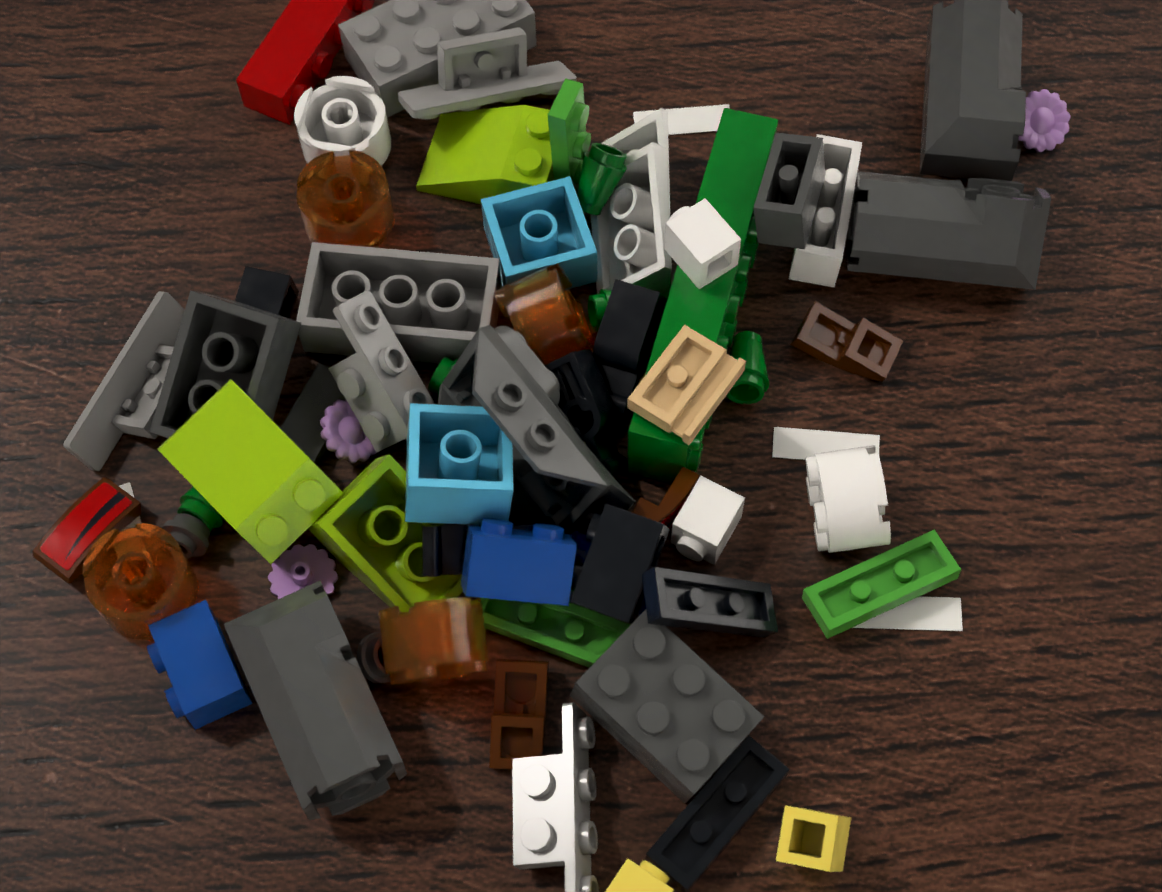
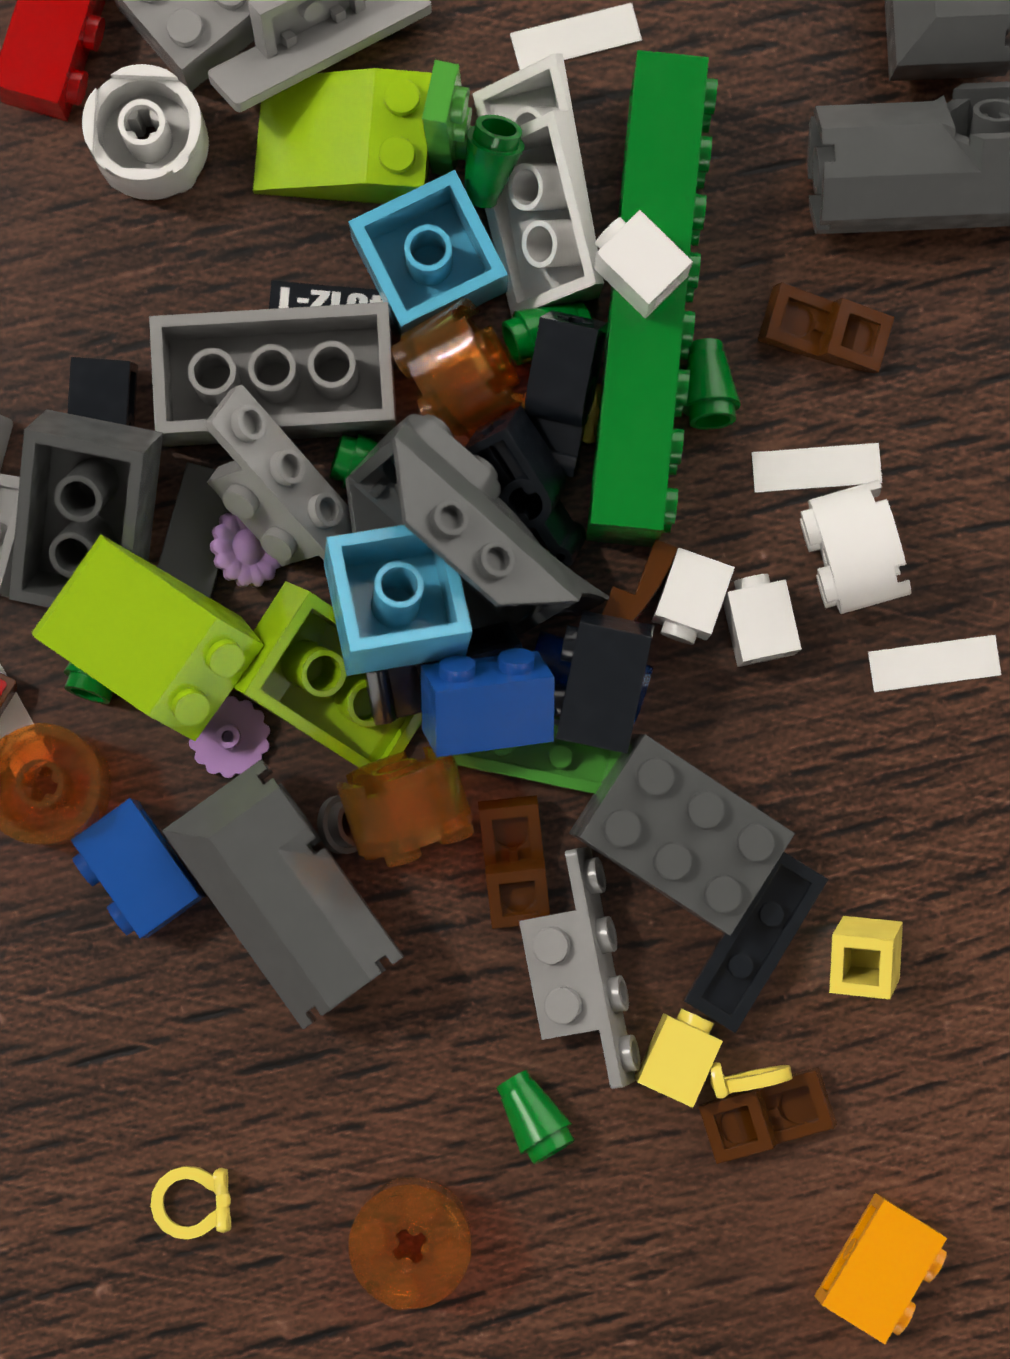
camera: 15 degrees left, 20 degrees up
(189, 533) = (82, 714): dark grey plate -> none
(345, 200) = (166, 210): clear orange brick -> none
(686, 384) = (652, 458): tan plate -> none
(709, 603) = (713, 707): black plate -> none
(762, 548) = (761, 620): none -> white brick
(790, 190) = (738, 163): dark grey brick -> none
(827, 237) = (779, 156): white brick -> none
(880, 583) = (904, 639): bright green plate -> none

